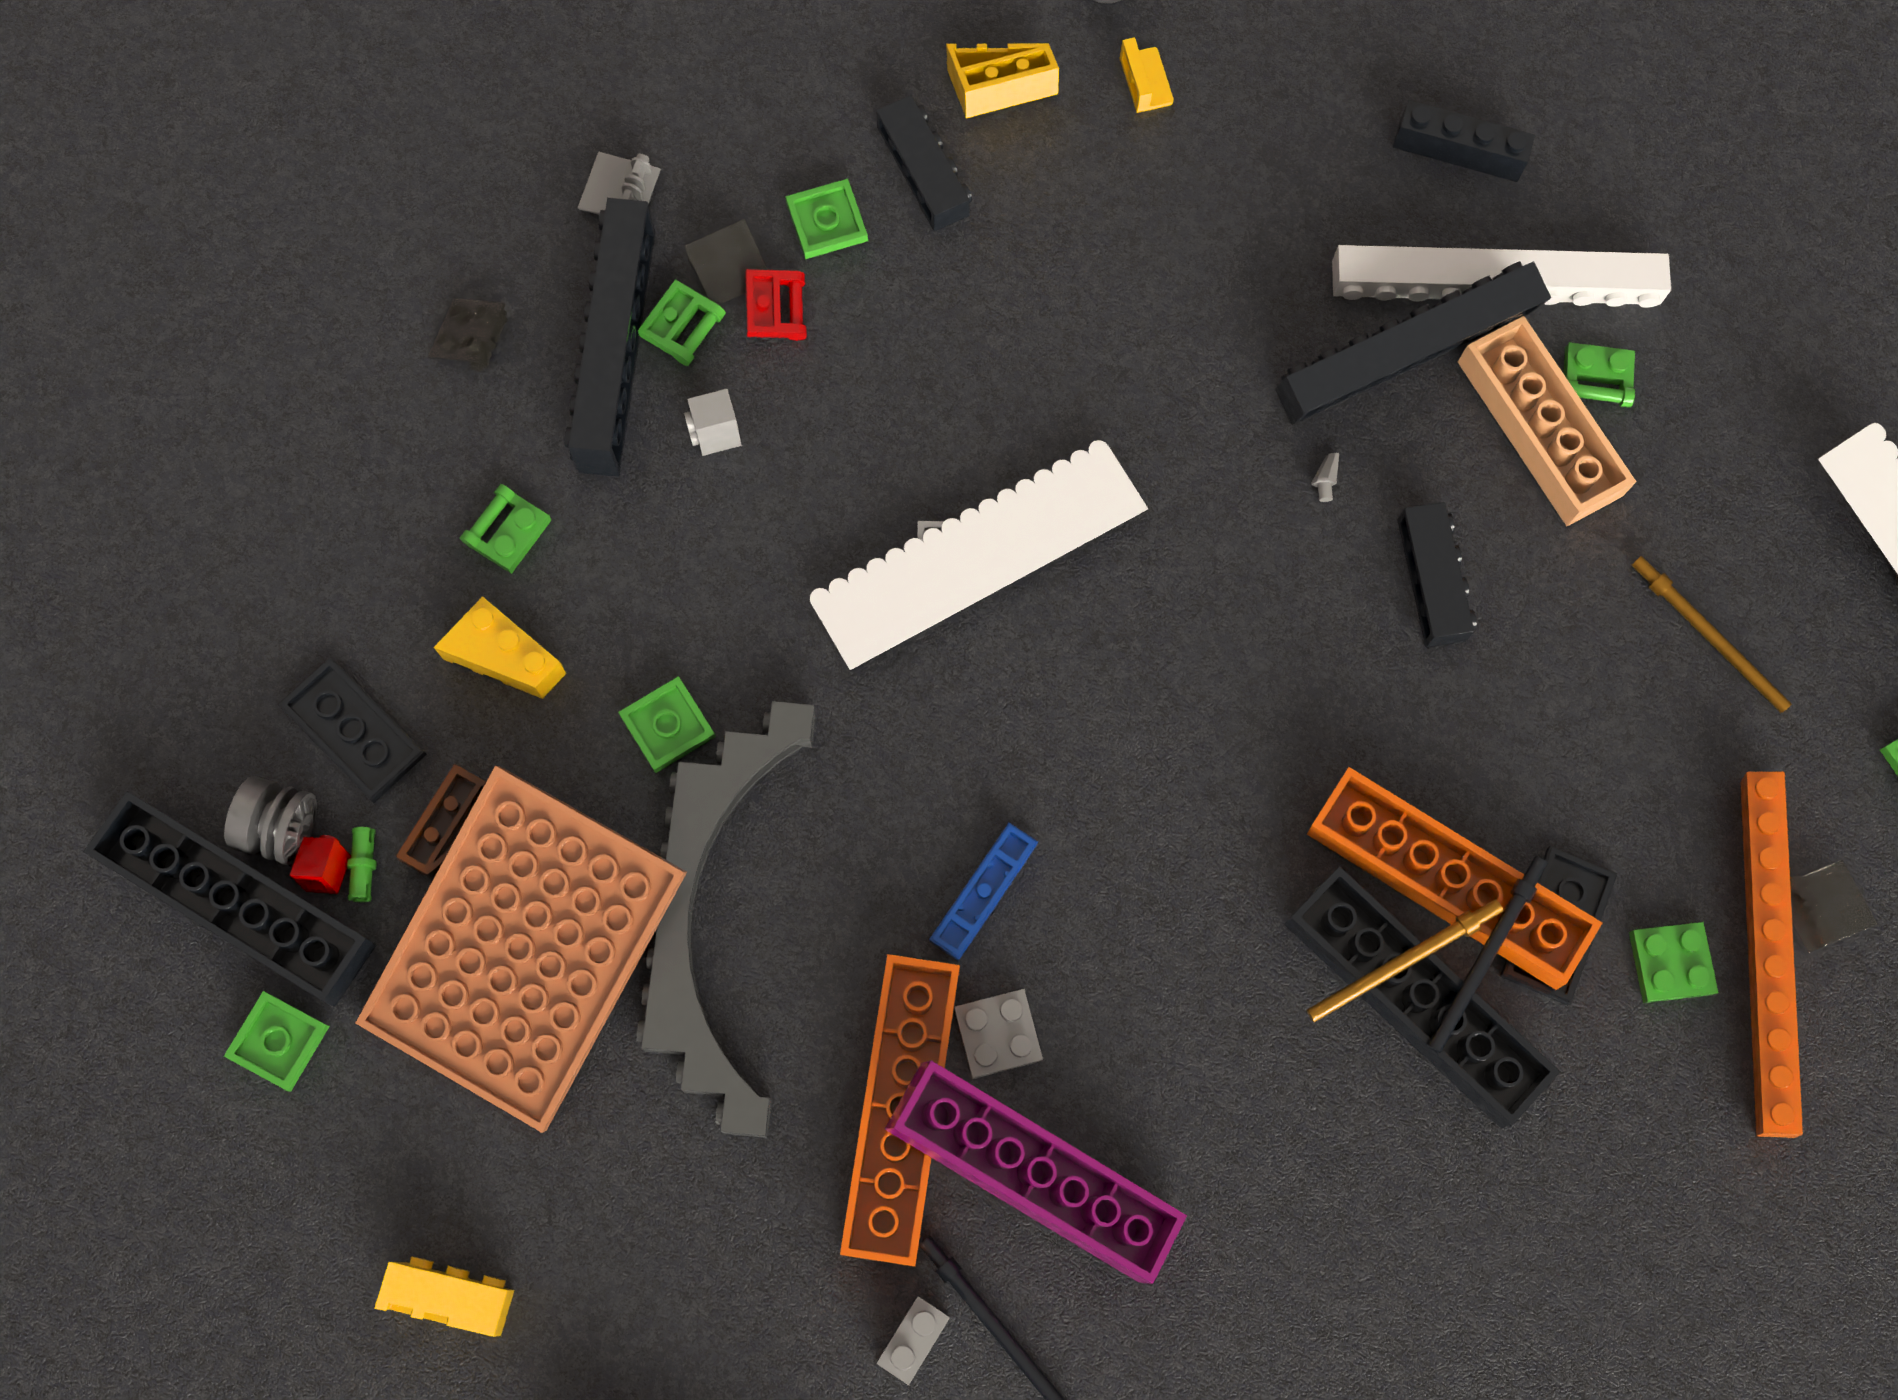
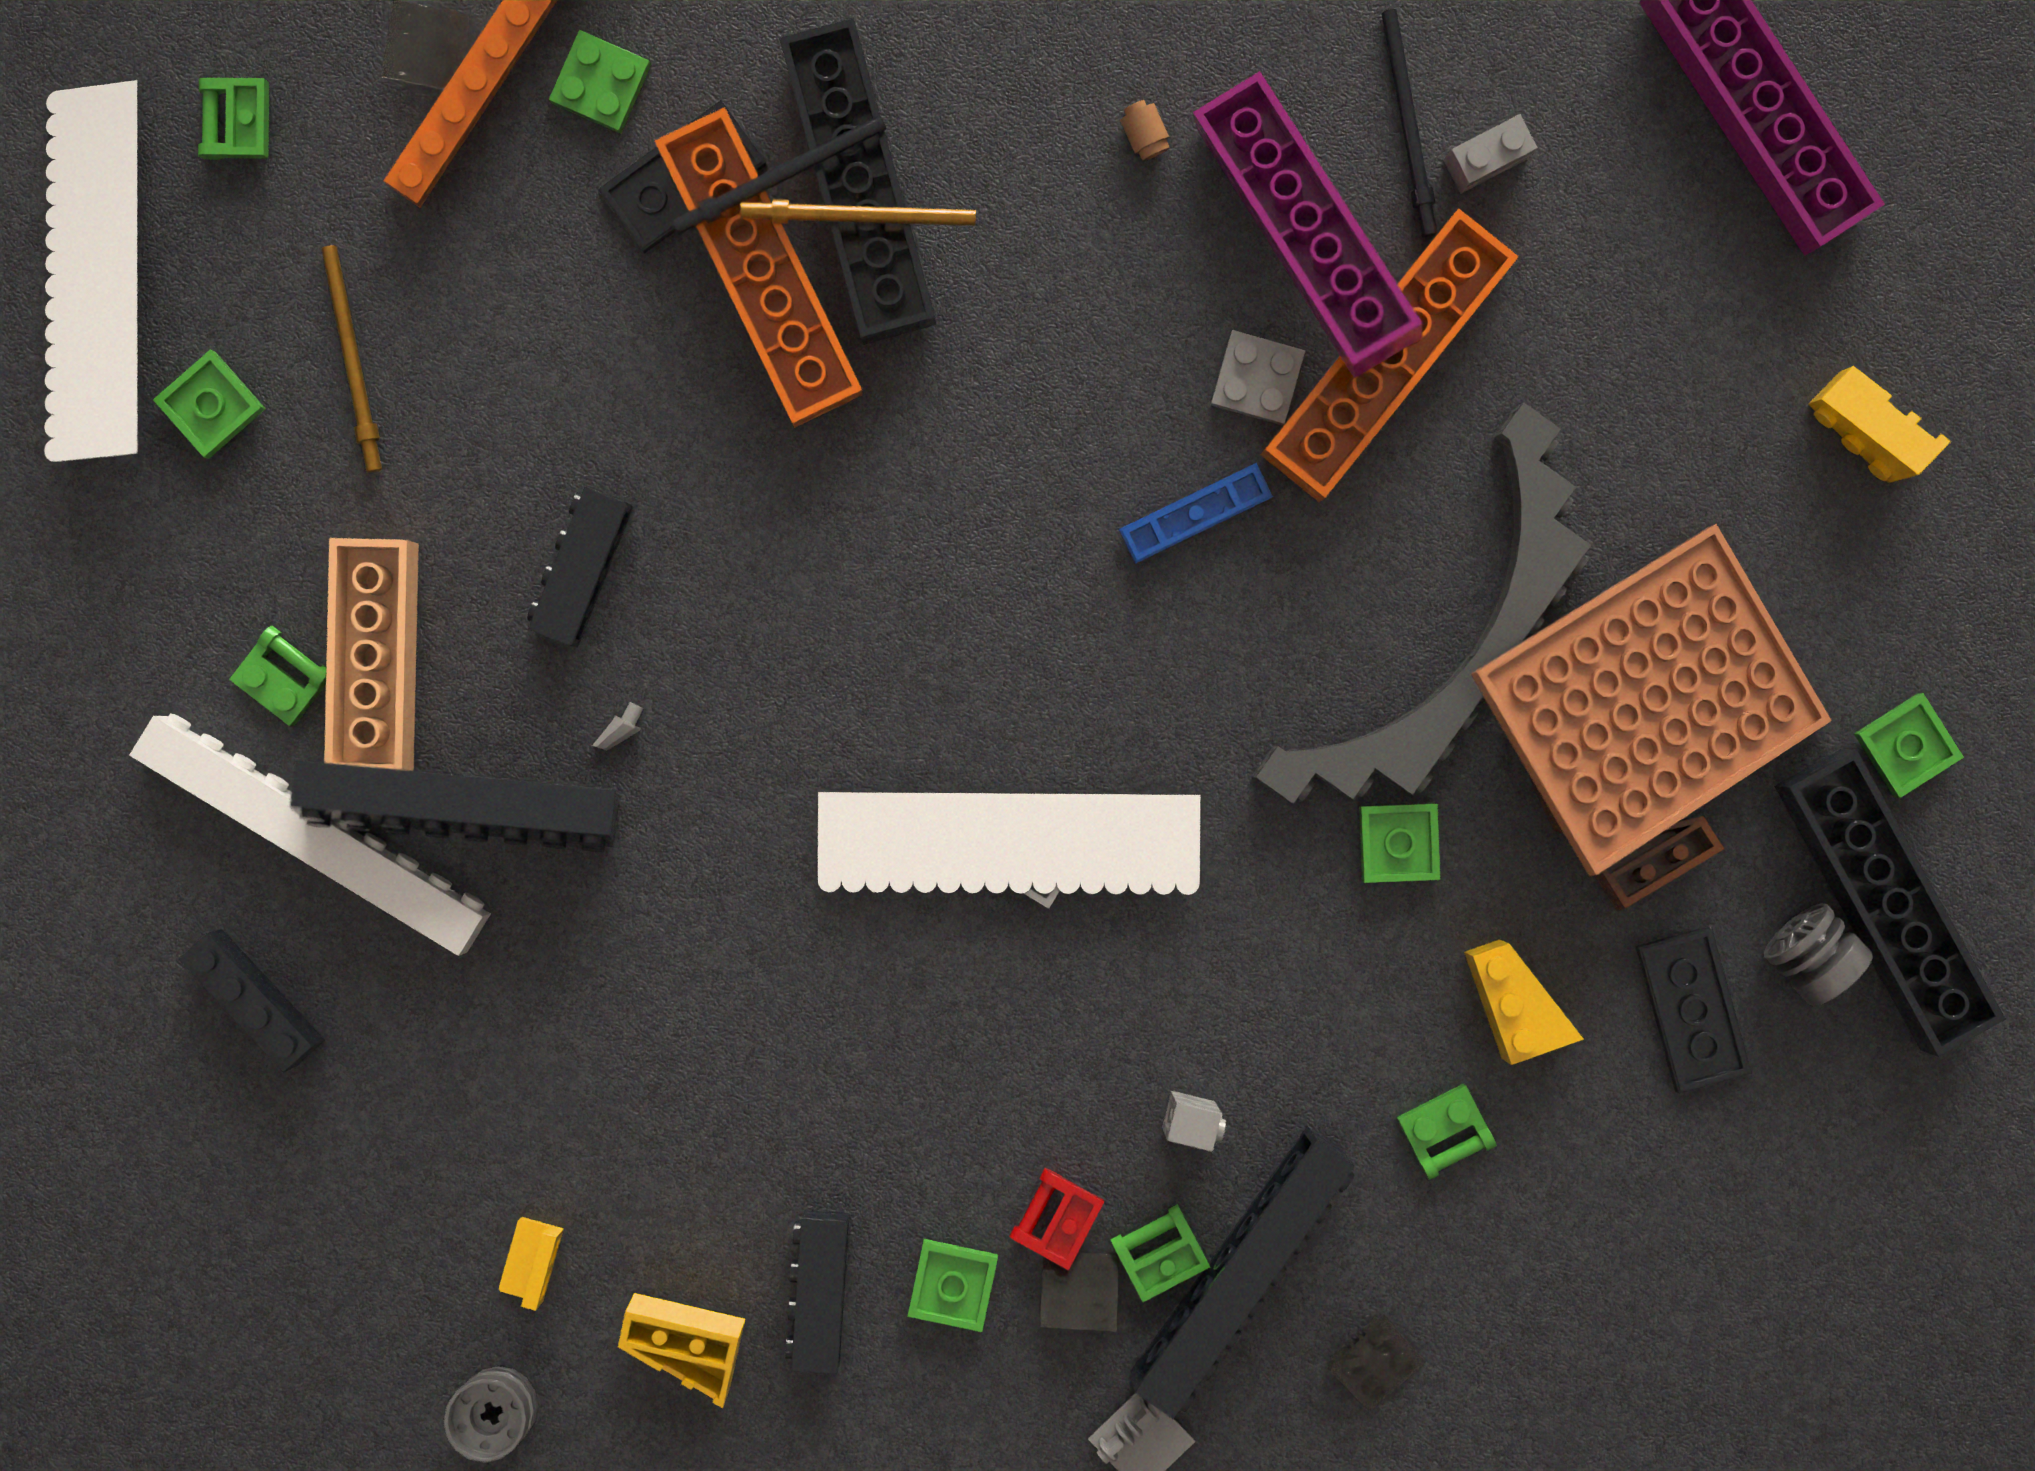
camera: 150 degrees left, 15 degrees up
(320, 864) = (1790, 888): red brick -> none
(361, 864) = (1751, 869): bright green pin -> none
(1215, 1185) = (1145, 130): none -> medium nougat brick
(1790, 538) = (209, 404): none -> bright green plate

